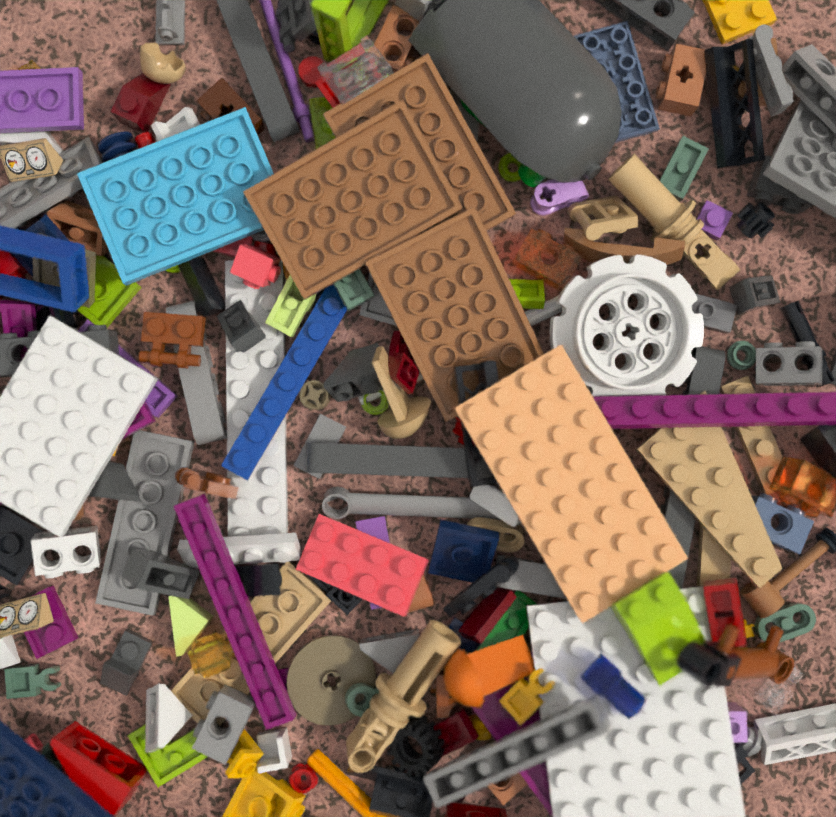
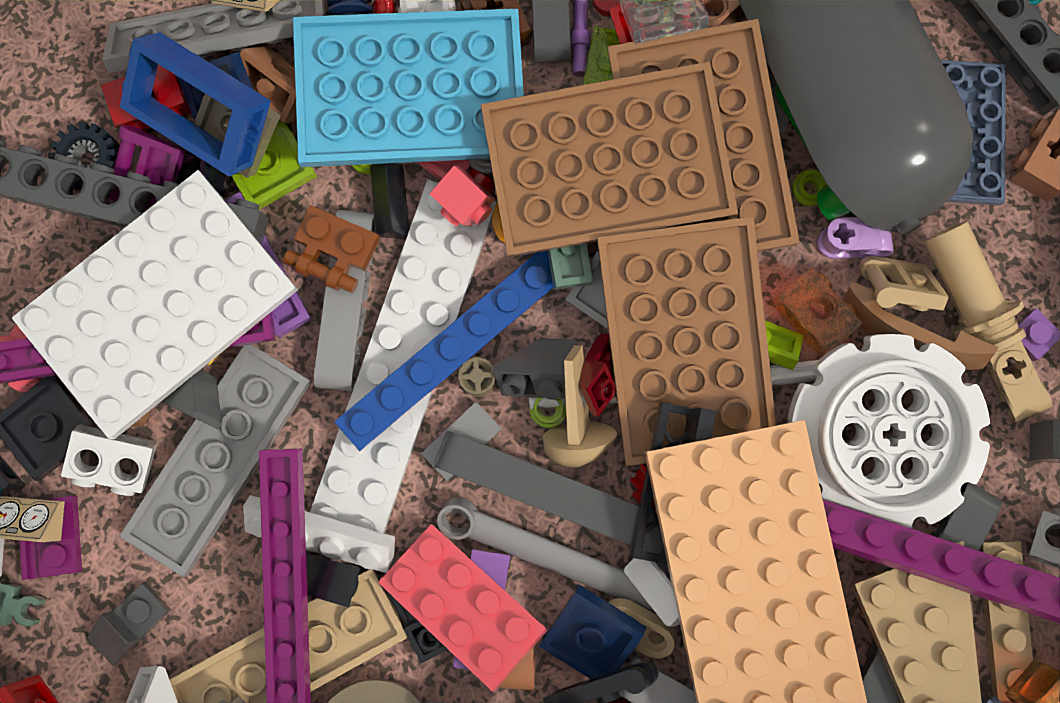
camera: 15 degrees right, 5 degrees down
(159, 573) = (211, 528): dark grey slope -> none
(187, 622) = (222, 599): yellowish green slope -> none
(211, 483) = (314, 439): dark orange plate -> none
(211, 655) = (235, 653): clear yellow head -> none
(240, 327) = (418, 264): dark grey slope -> none
(289, 309) = (485, 262): yellowish green slope -> none
(683, 167) = (1020, 257): sand green plate -> none
(716, 313) = (1006, 451): flat silver plate -> none
(750, 355) = (1031, 510): sand green plate -> none

